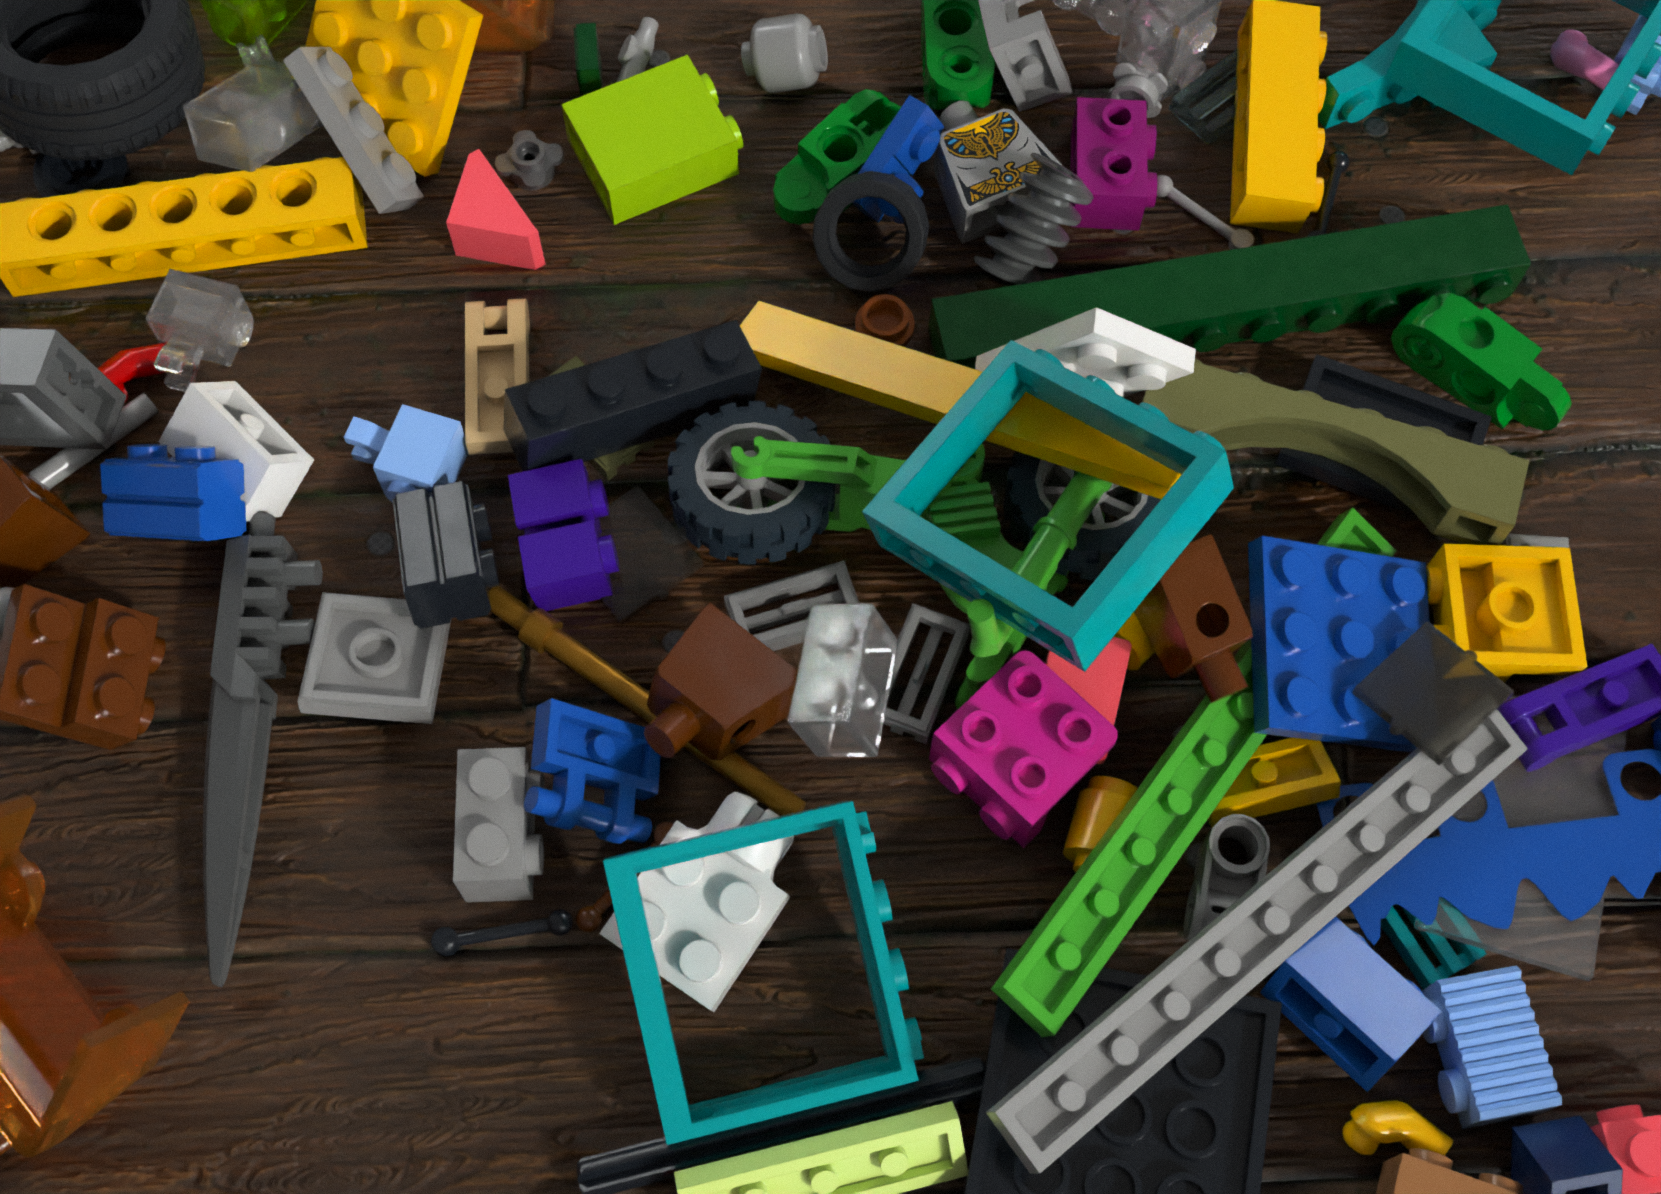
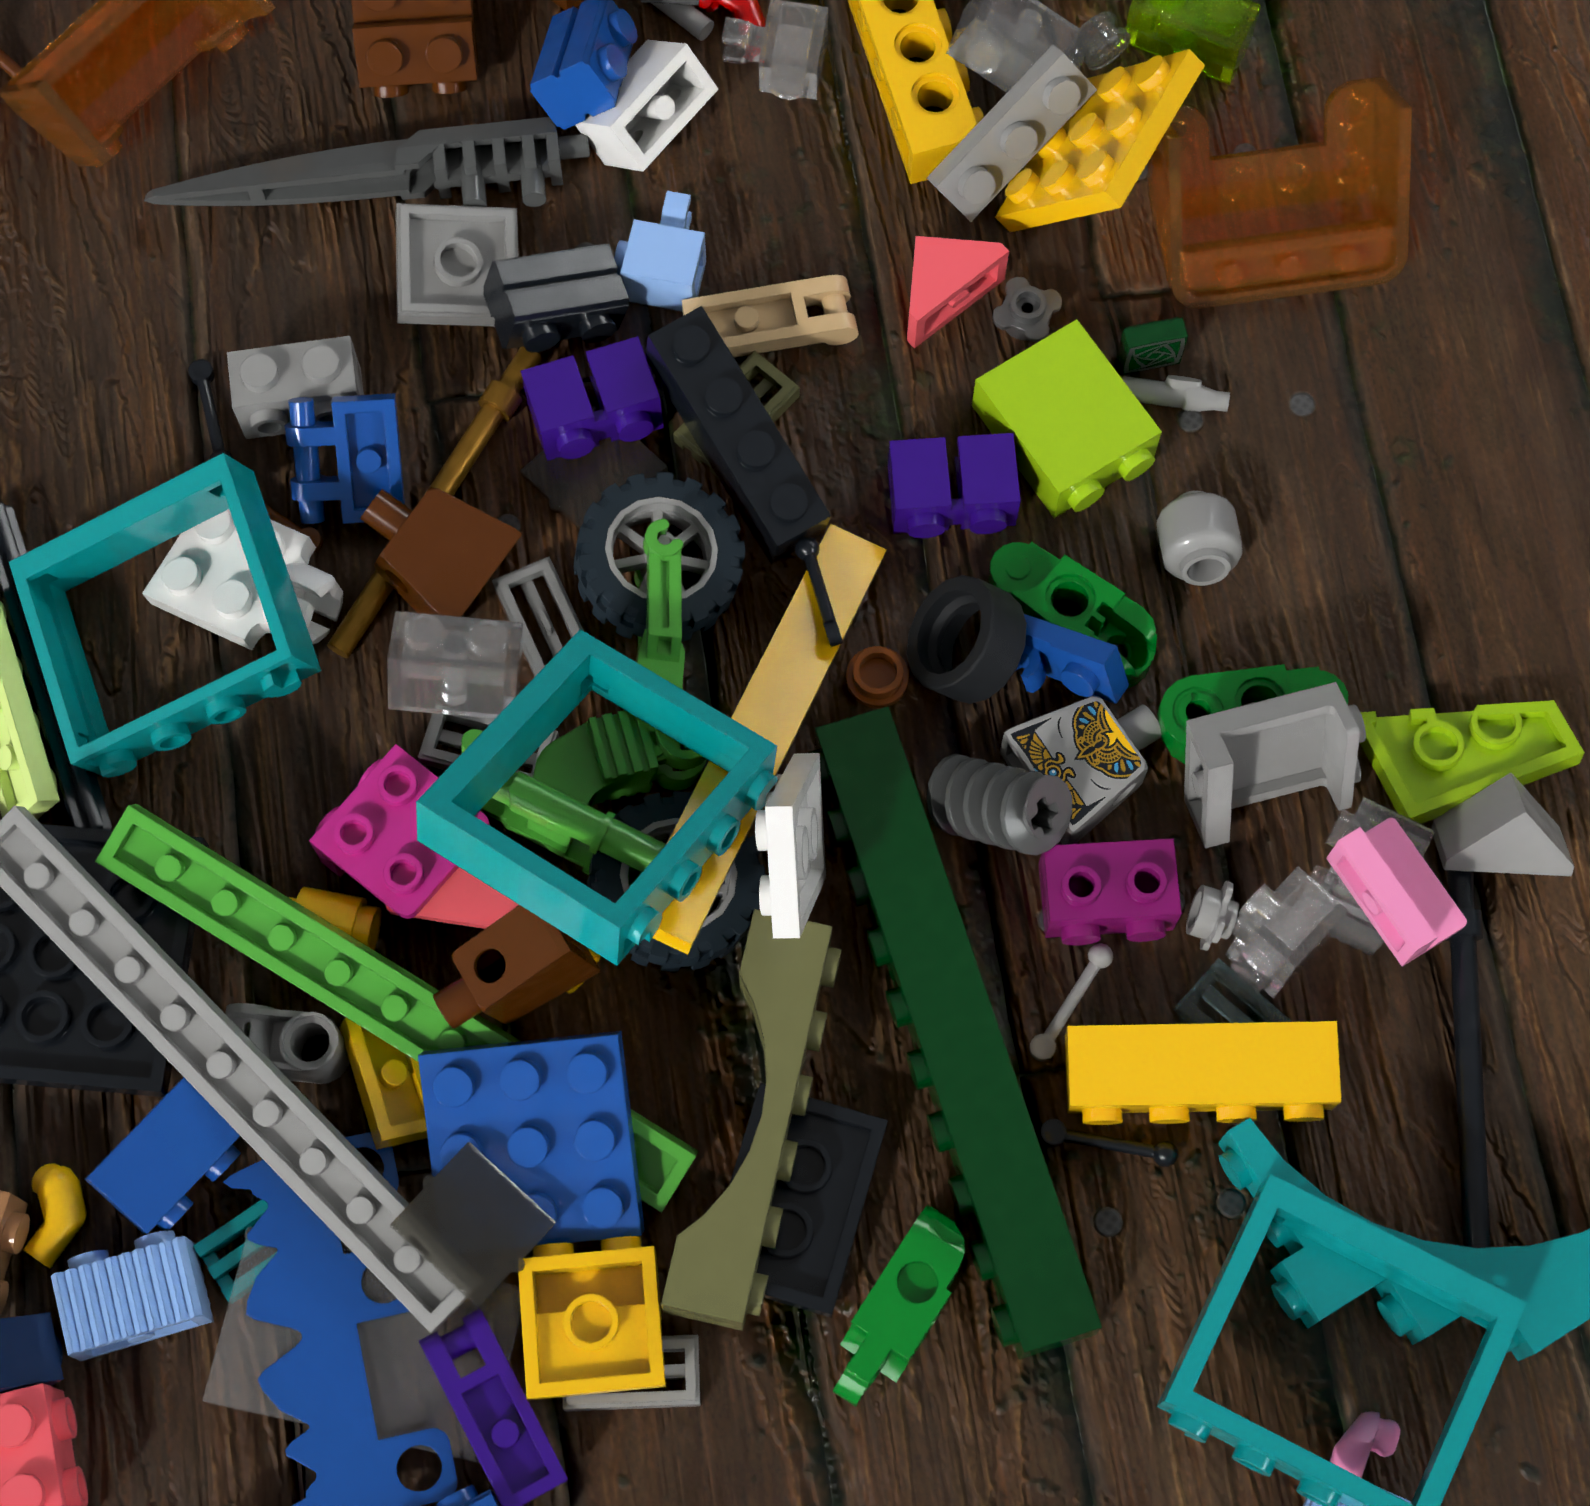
camera: 85 degrees right, 5 degrees up
(703, 235) = (984, 483): none -> dark purple piece
(852, 332) = (808, 550): none -> black hinge

